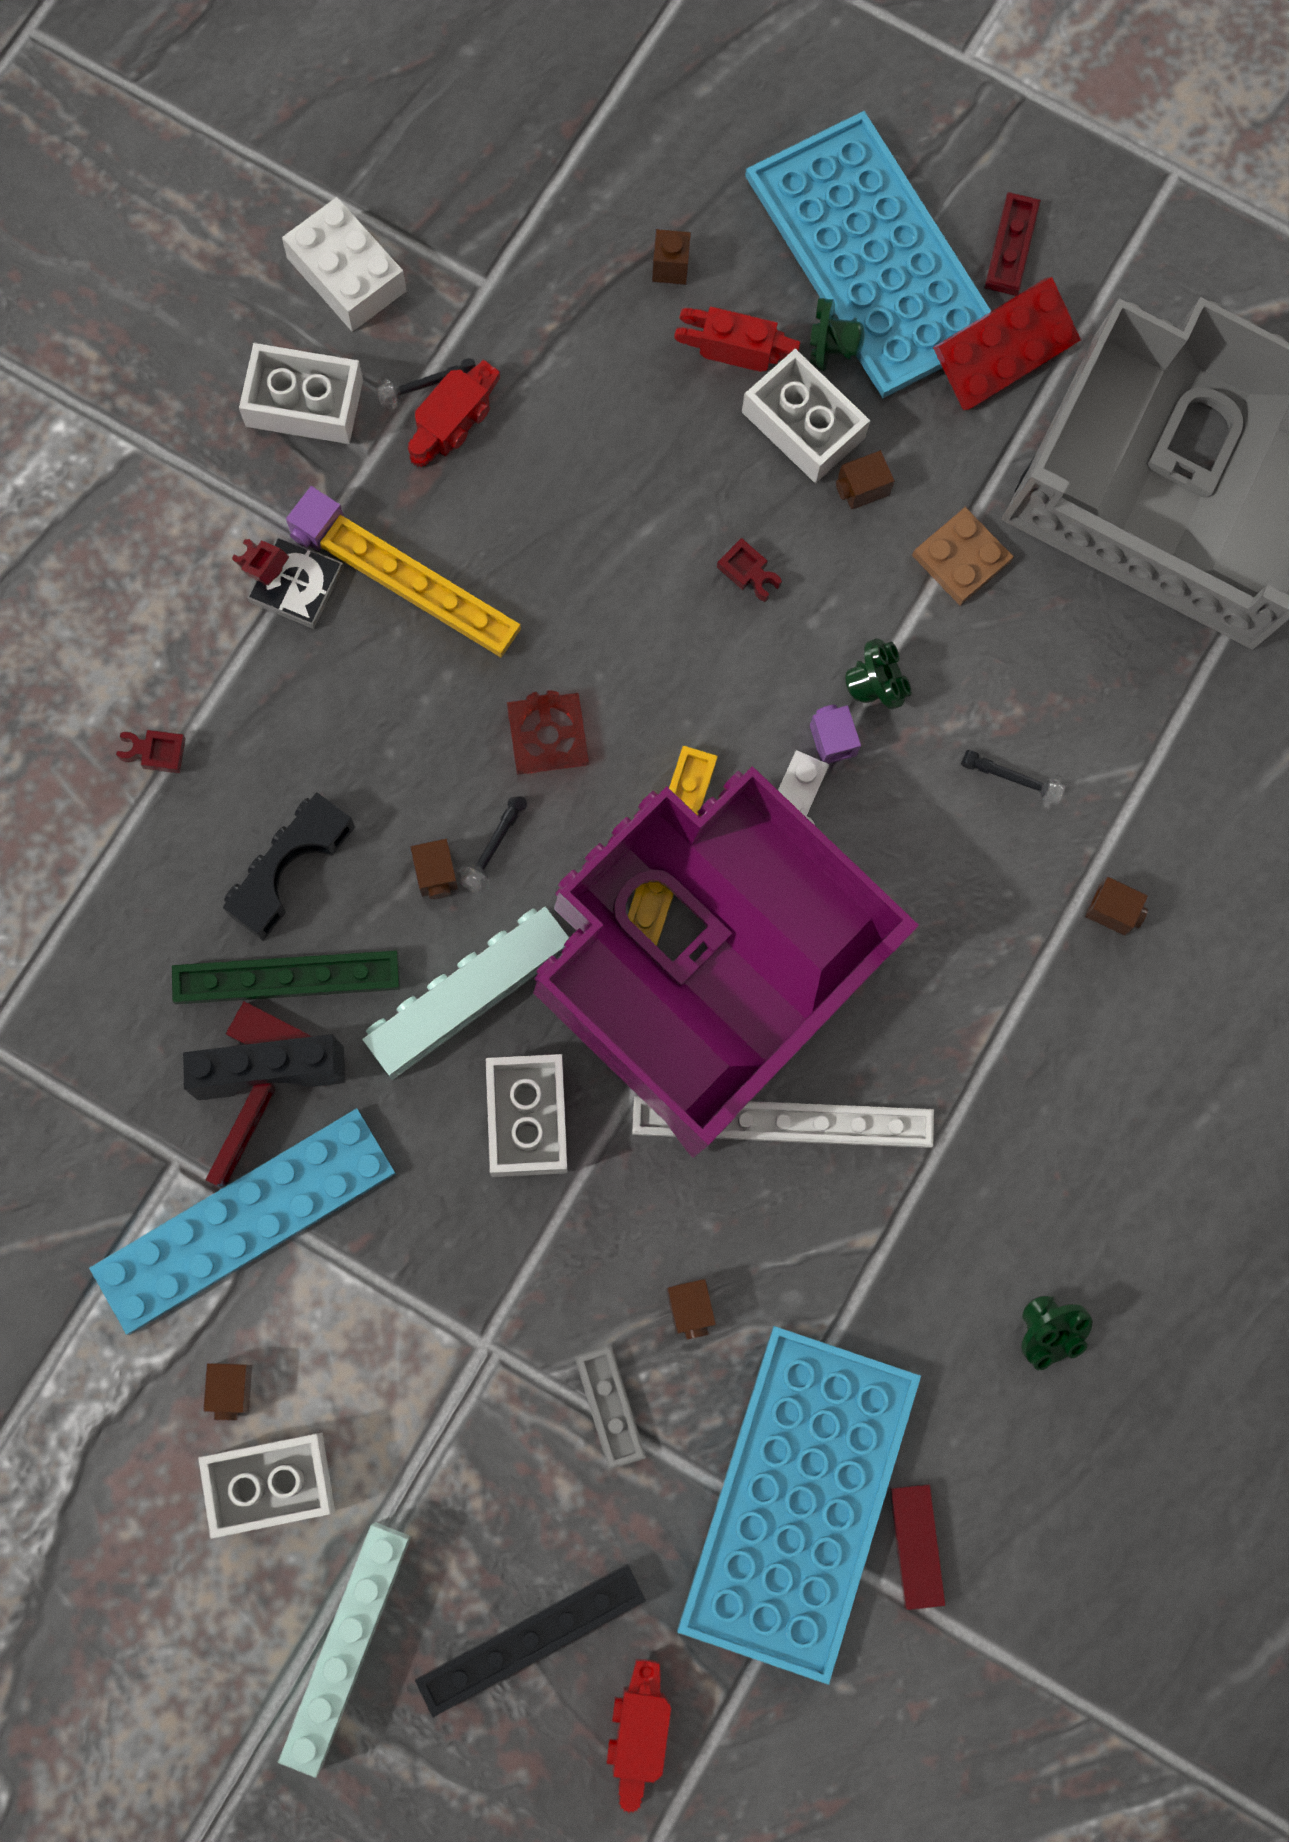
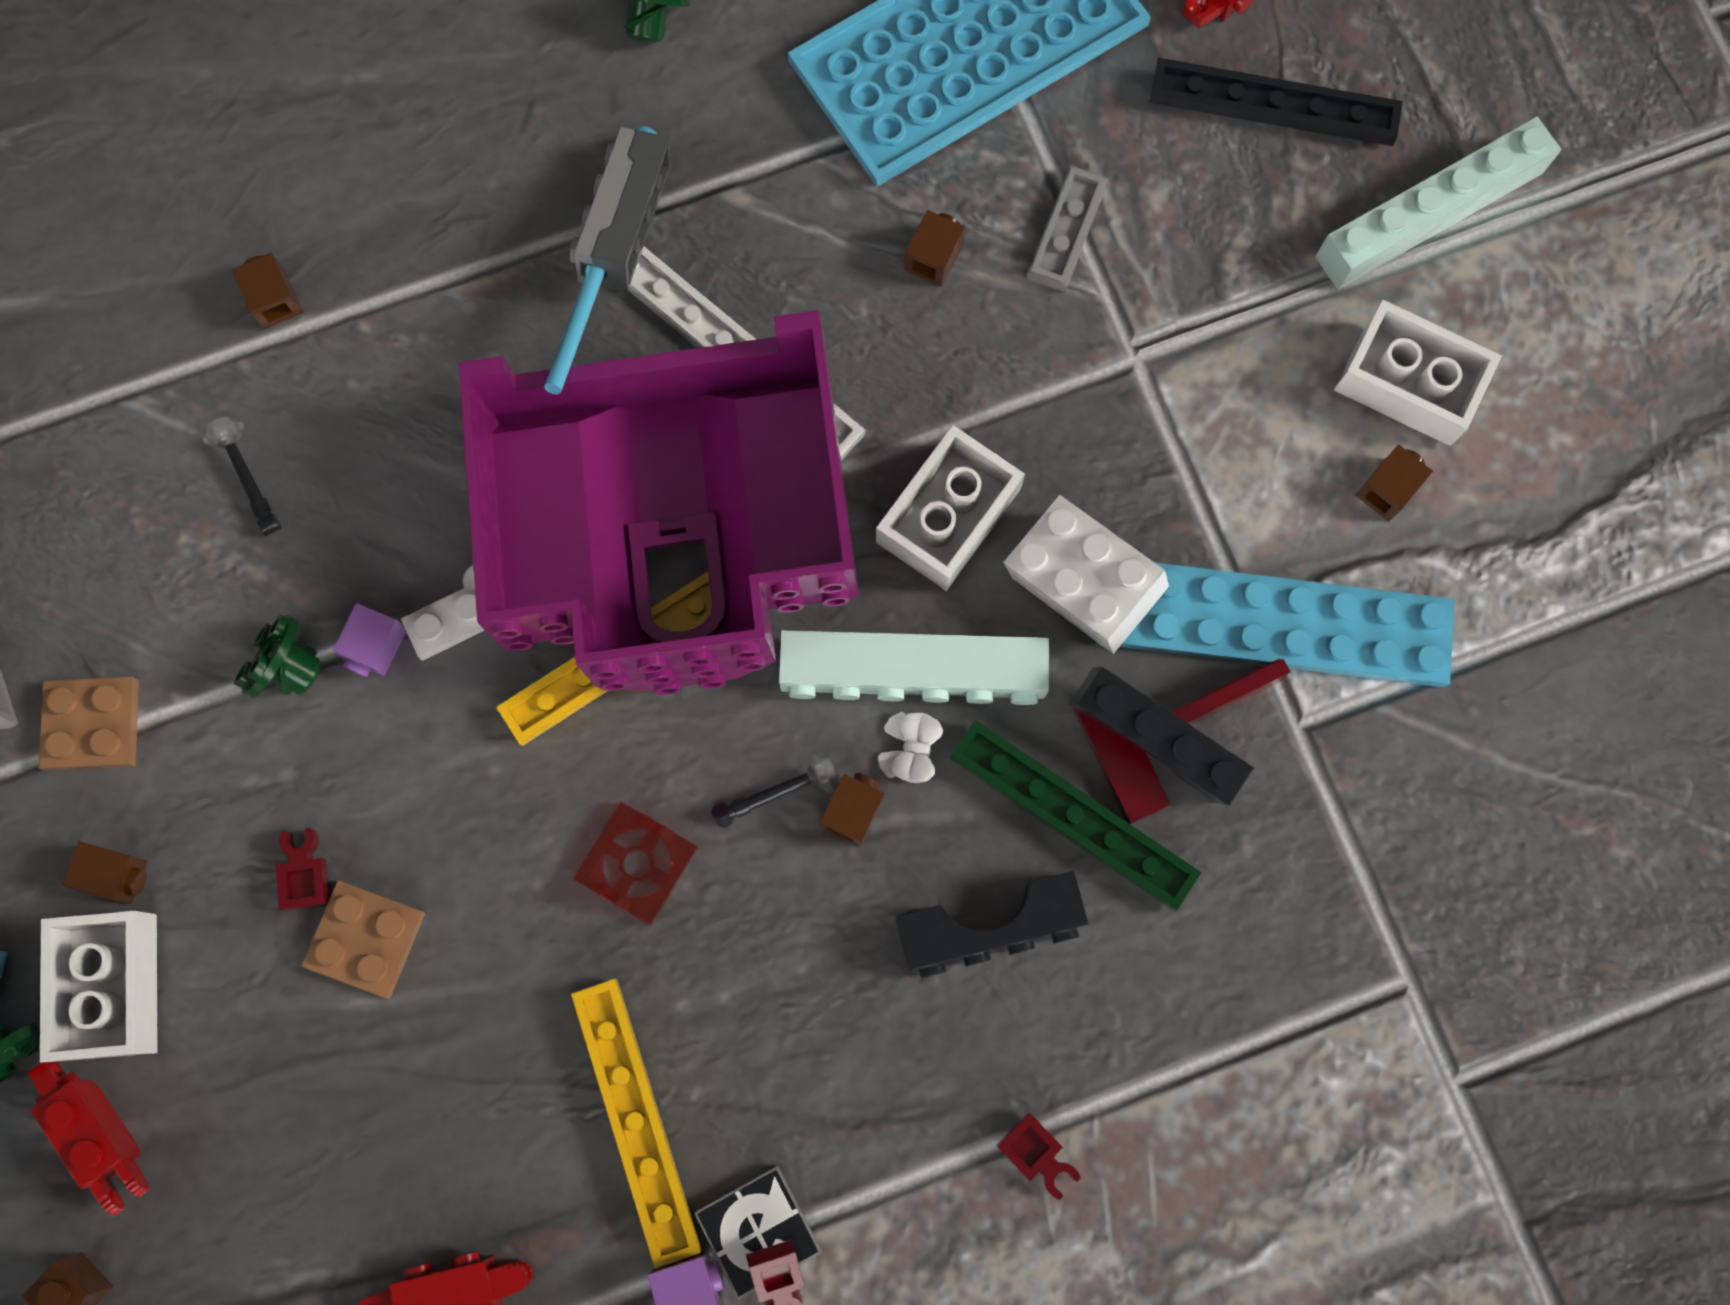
camera: 135 degrees left, 0 degrees up
(396, 1139) = (1087, 574): none -> white brick
(421, 931) = (919, 733): none -> white piece
(677, 563) = (363, 939): none -> medium nougat plate
(920, 1130) = (613, 230): none -> piece

